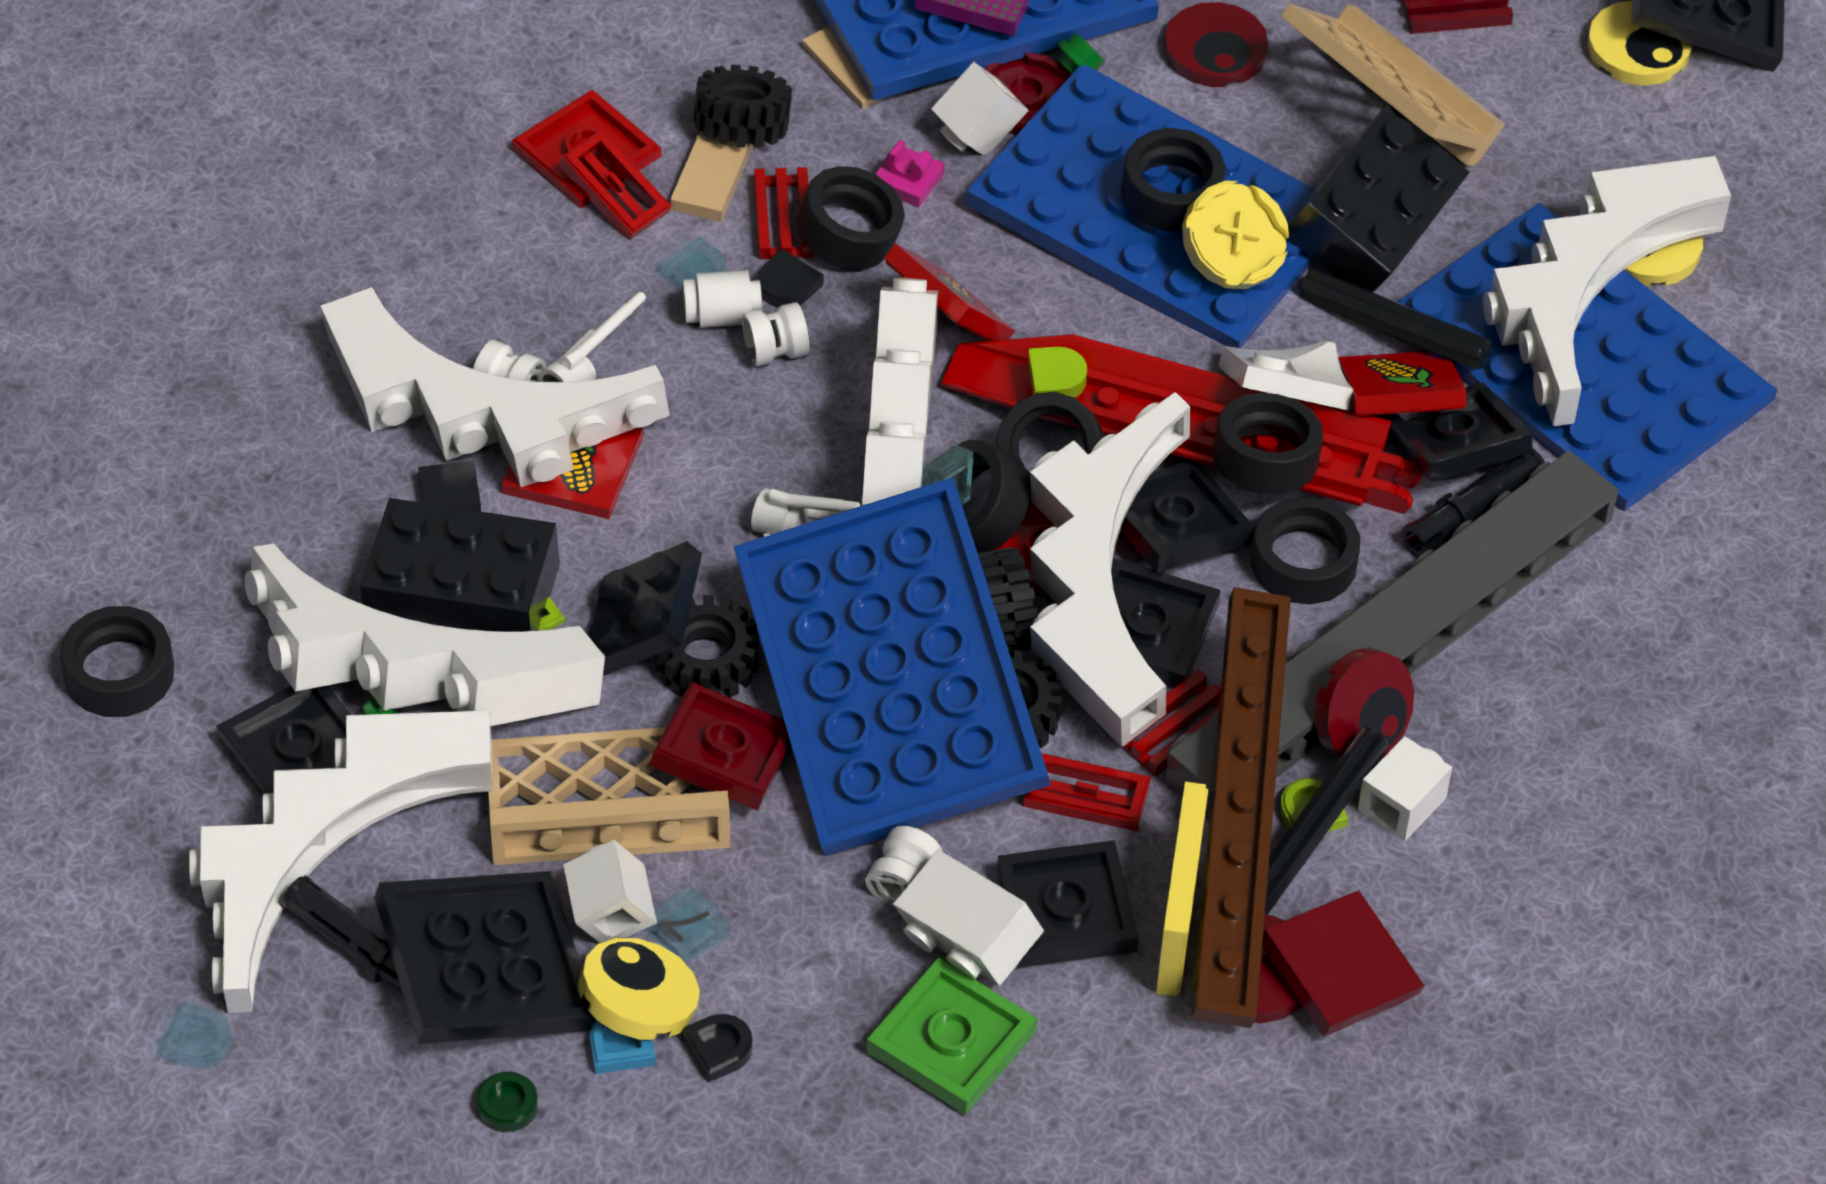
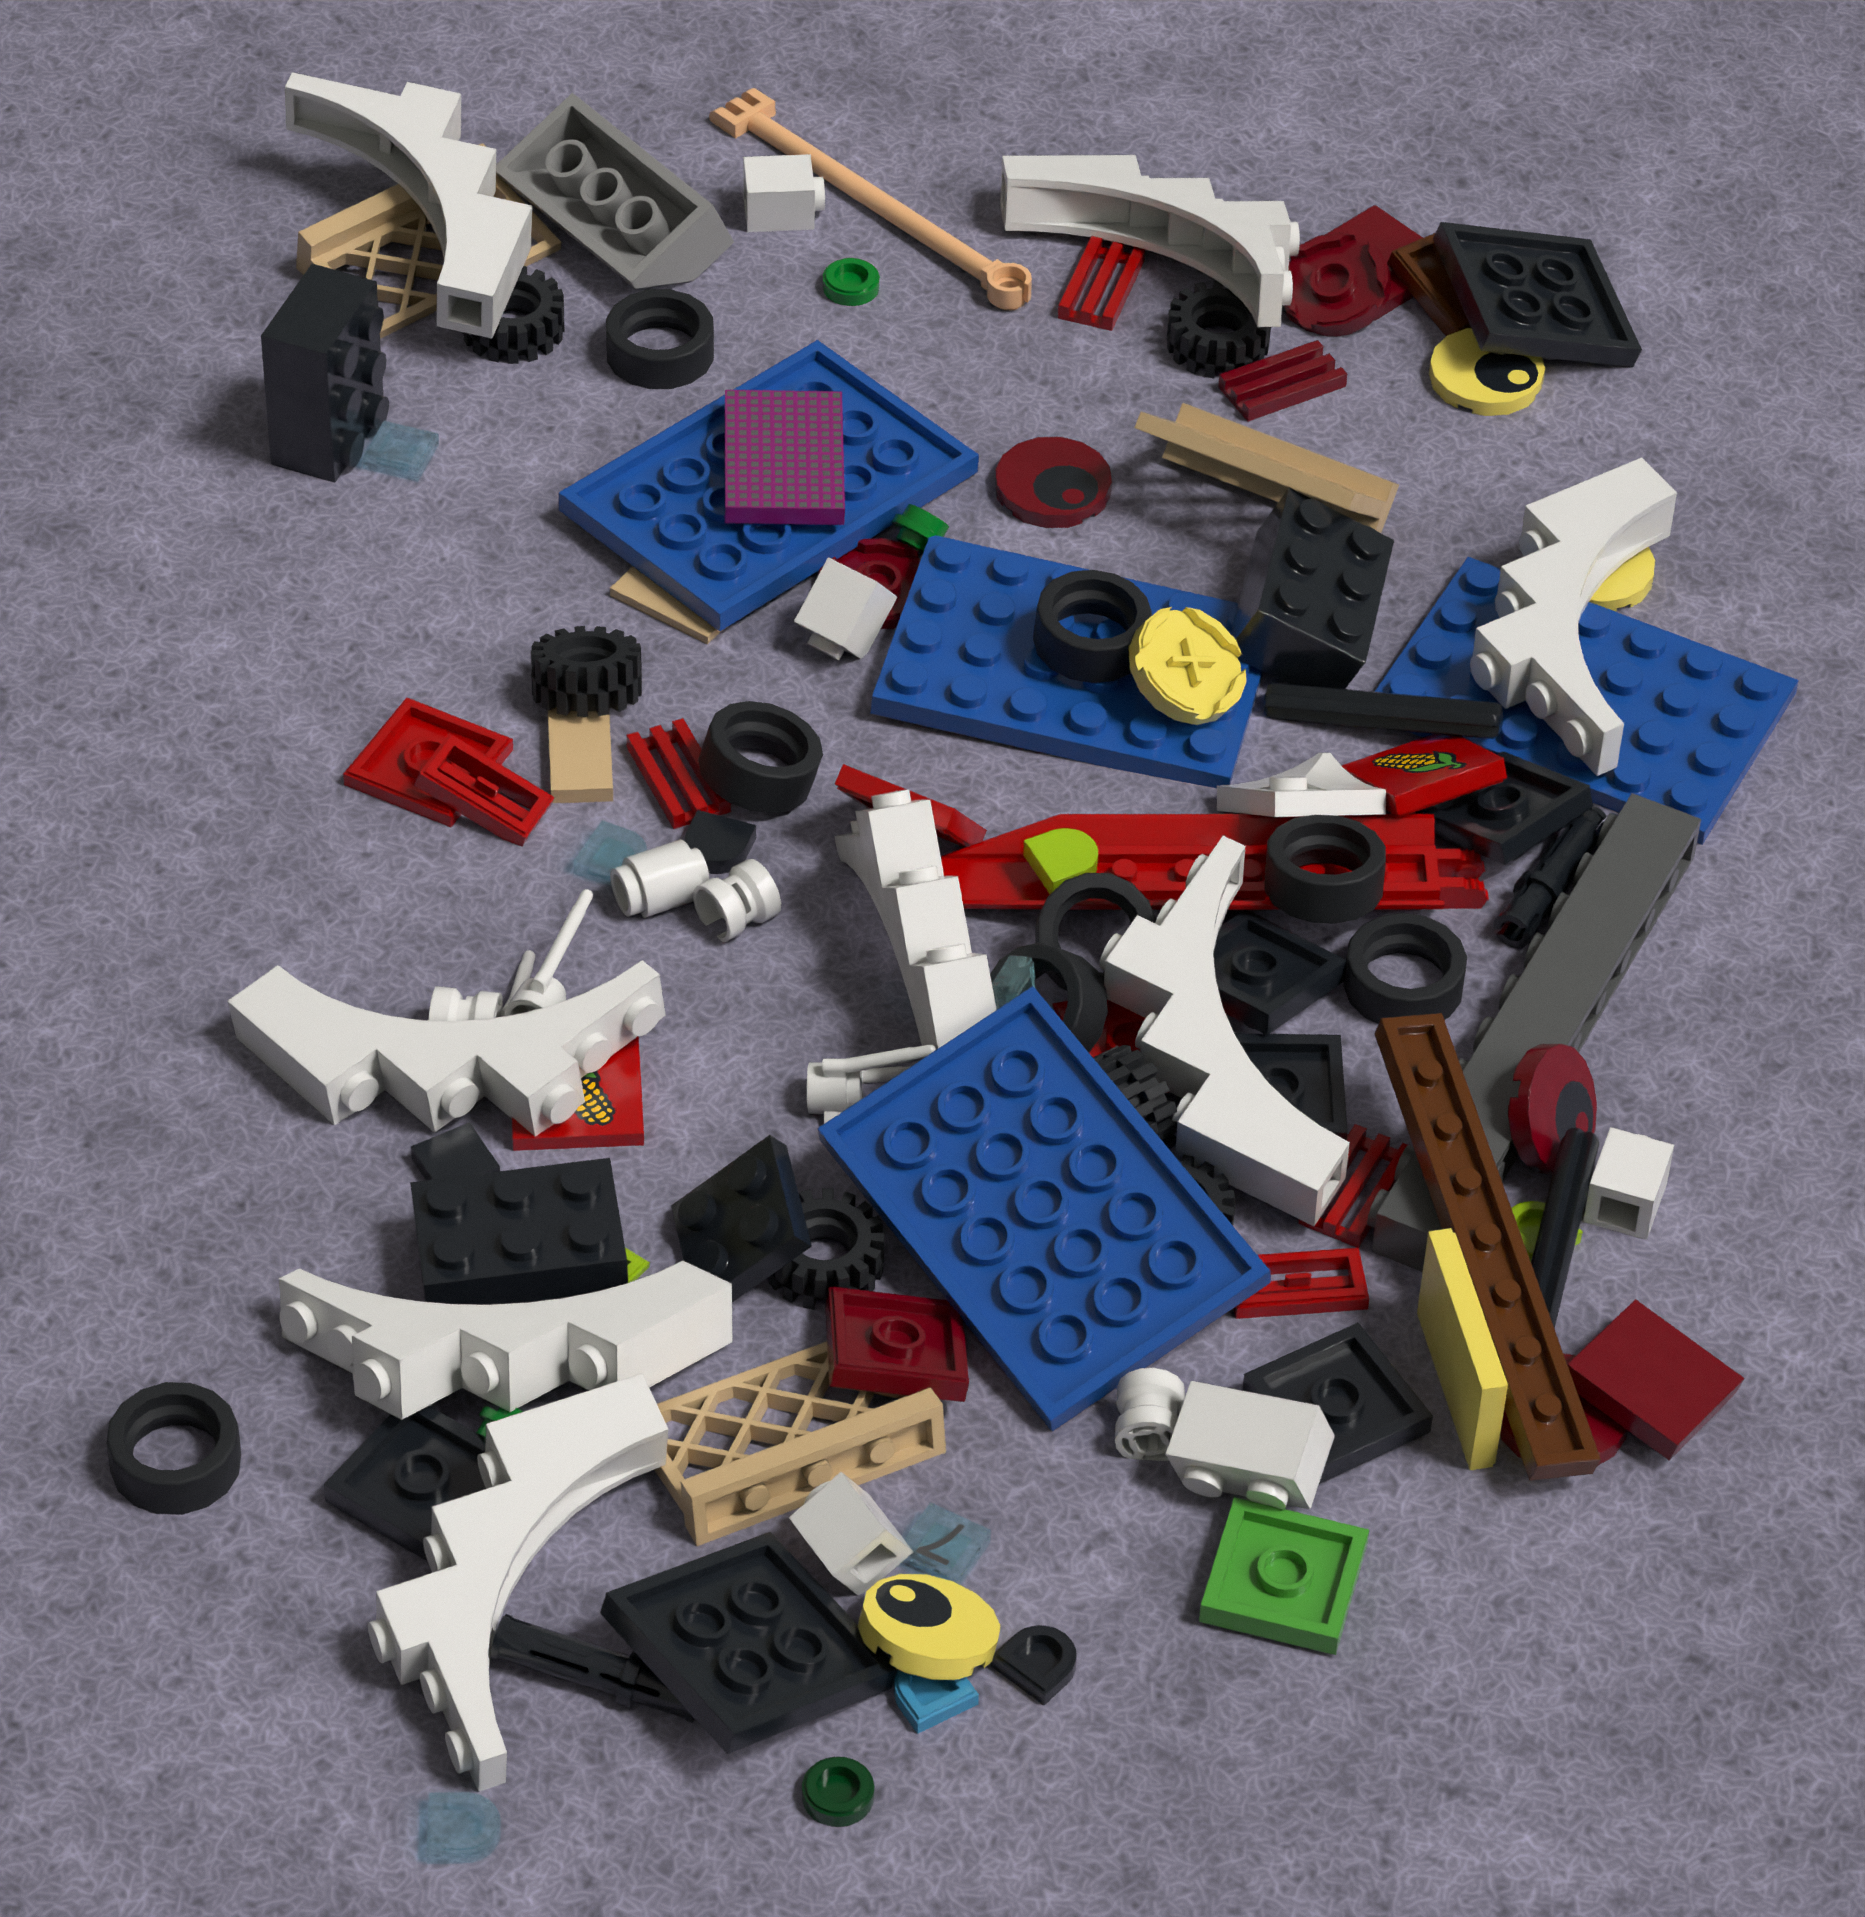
camera: 20 degrees left, 5 degrees down
(911, 173) = (798, 692): dark pink tile -> none

